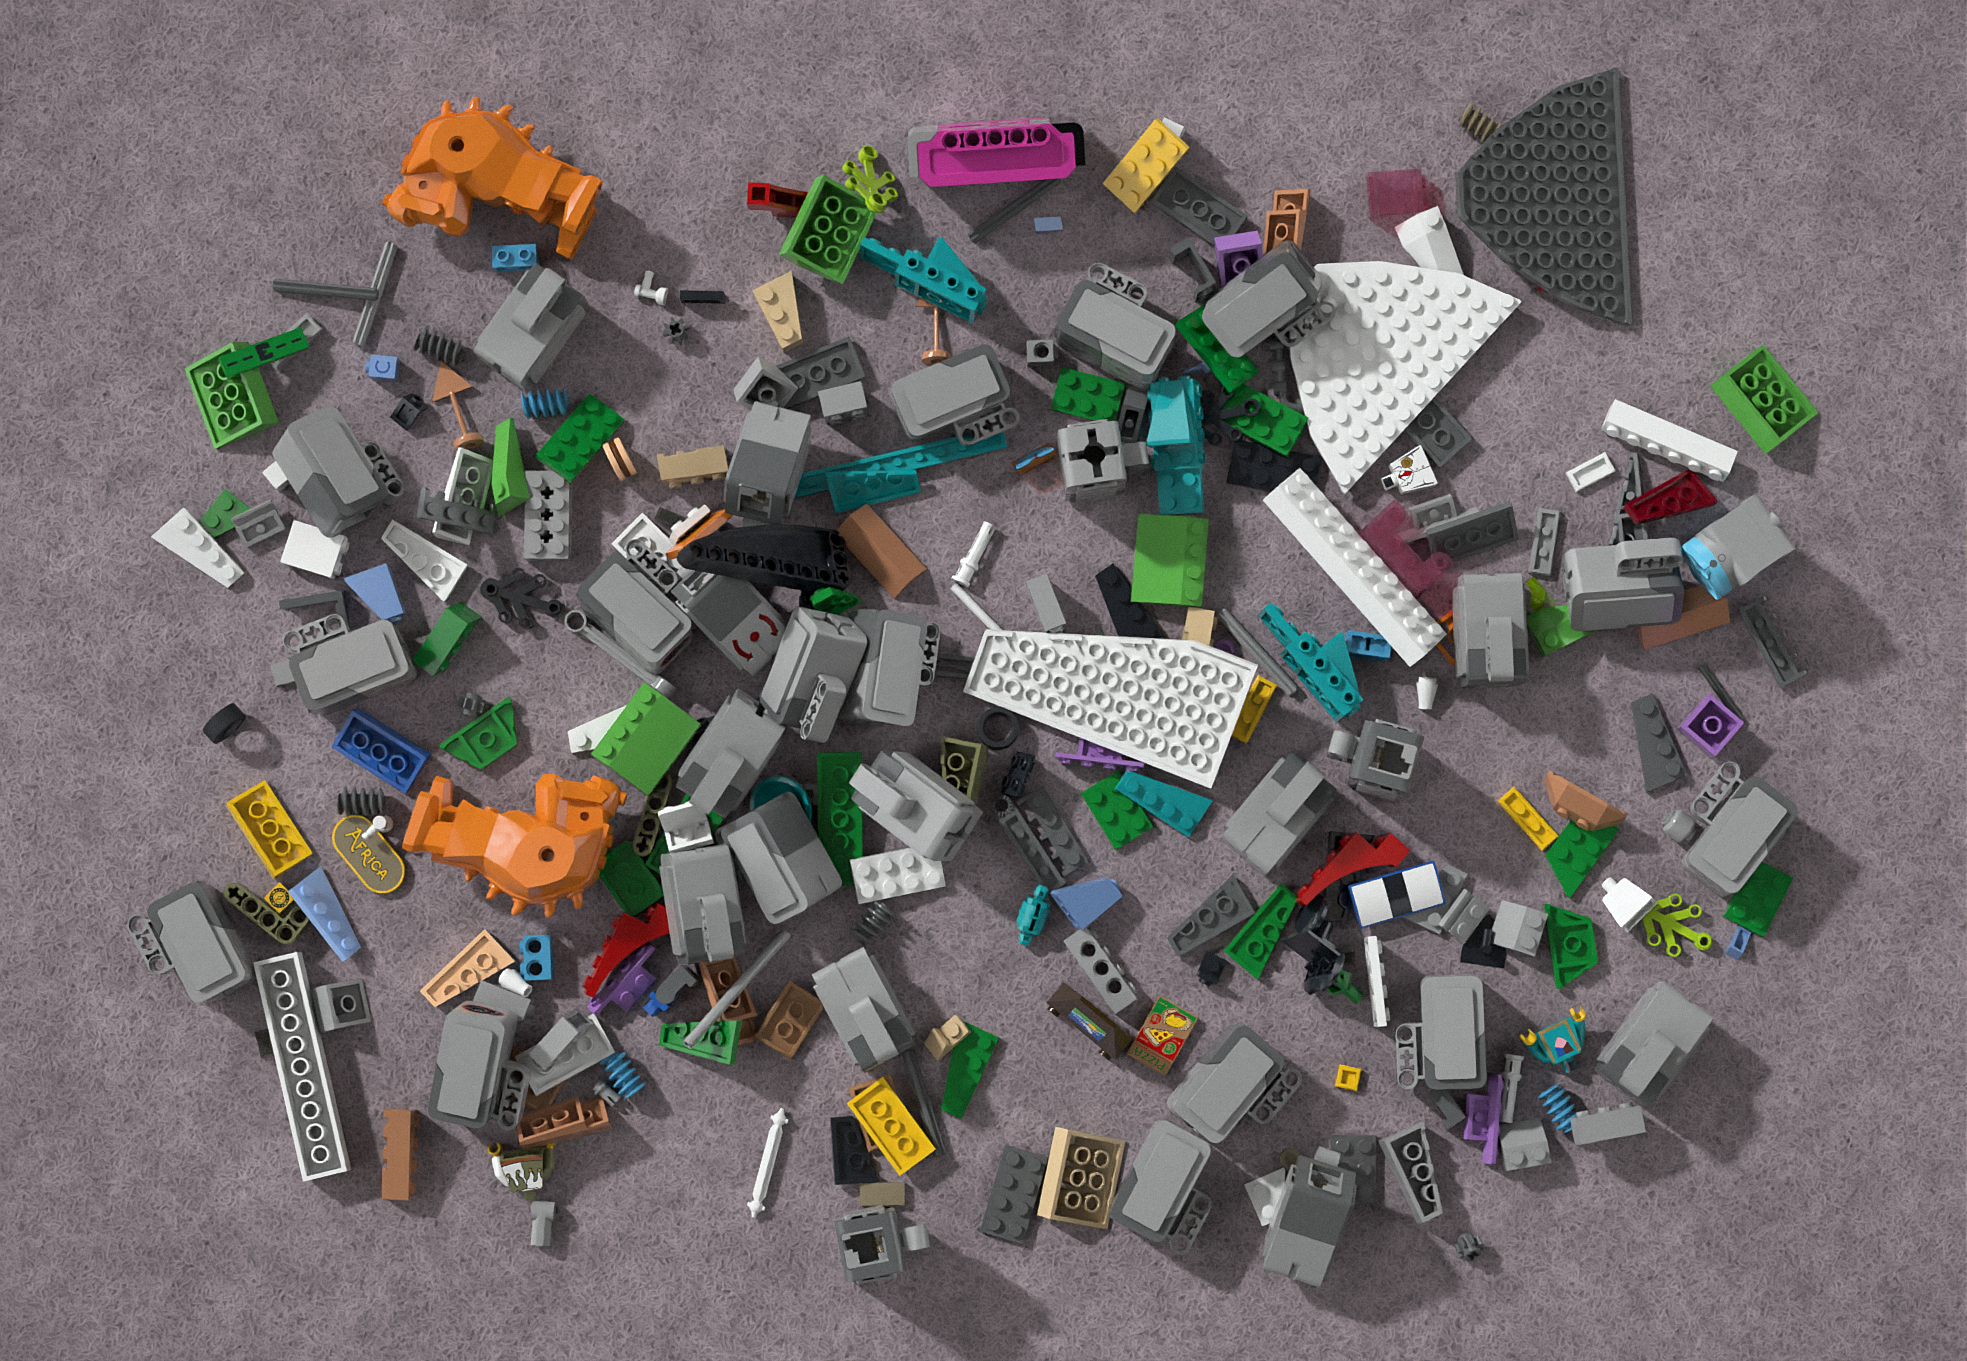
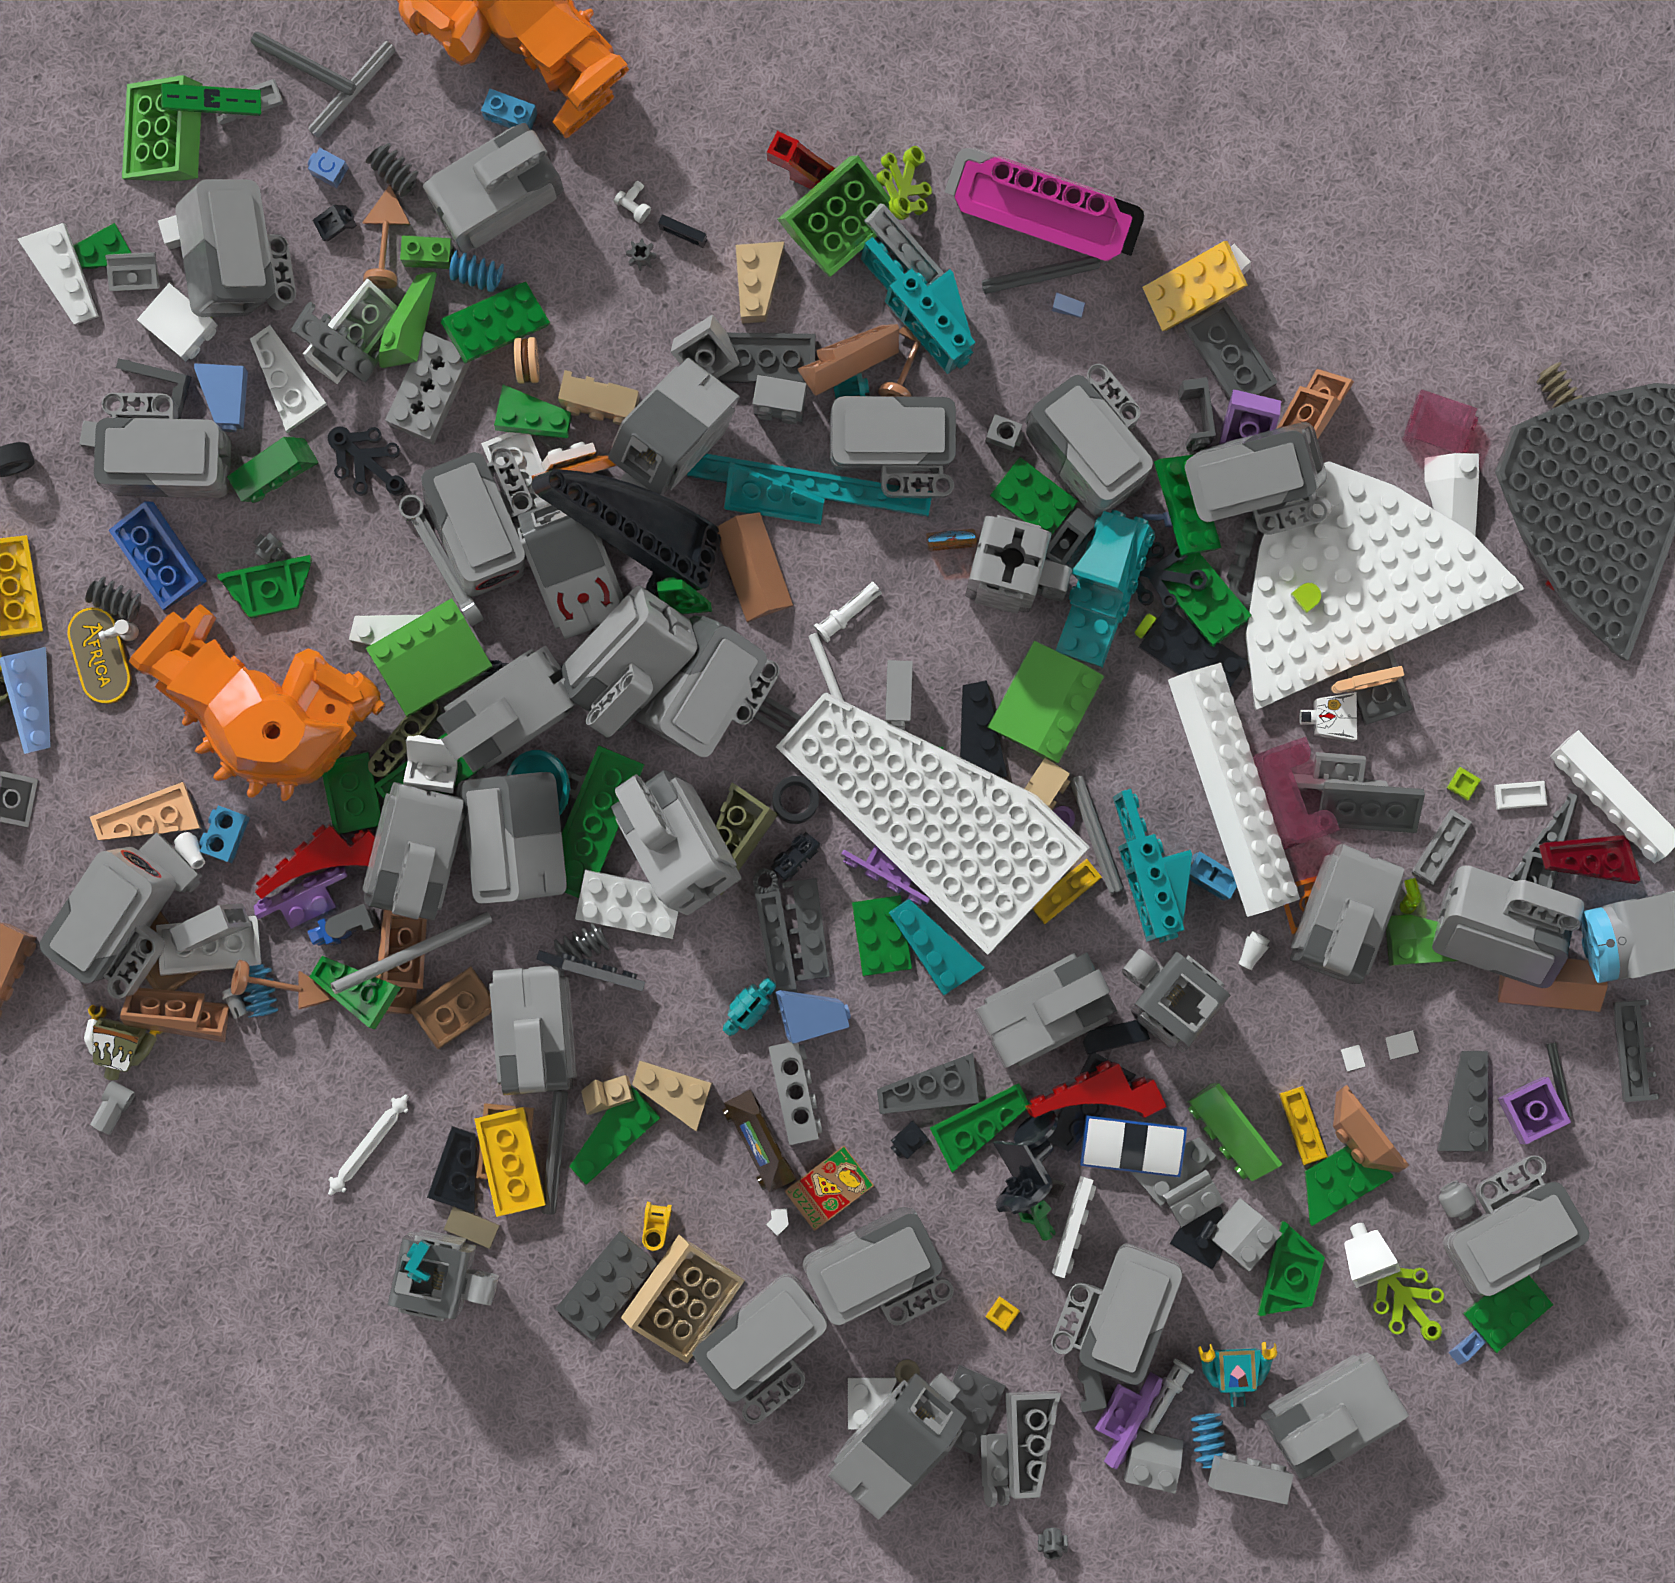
camera: 20 degrees right, 0 degrees up
(497, 404) = (426, 252): none -> bright green brick
(642, 503) = (530, 415): none -> green wing
(663, 1056) = (308, 990): none -> nougat piece
(853, 1231) = (416, 1255): none -> teal bracket
(887, 343) = (850, 357): none -> nougat slope
(891, 232) = (902, 244): none -> light grey plate
(891, 939) = (588, 968): none -> wing
(895, 366) = (852, 387): none -> teal bracket
(1001, 1010) = (674, 1091): none -> tan wedge
(1033, 1125) = (656, 1224): none -> yellow piece
(1133, 1079) = (779, 1220): none -> white piece
(1224, 462) = (1144, 625): none -> lime tile
(1343, 811) = (1115, 1036): none -> black piece
(1347, 383) = (1307, 596): none -> lime tile
(1396, 1207) = (995, 1469): none -> light grey hinge
(1426, 431) = (1368, 680): none -> light nougat piece
(1474, 848) = (1233, 1132): none -> bright green slope
(1540, 482) = (1463, 783): none -> lime tile
(1577, 720) = (1398, 1046): none -> white sticker

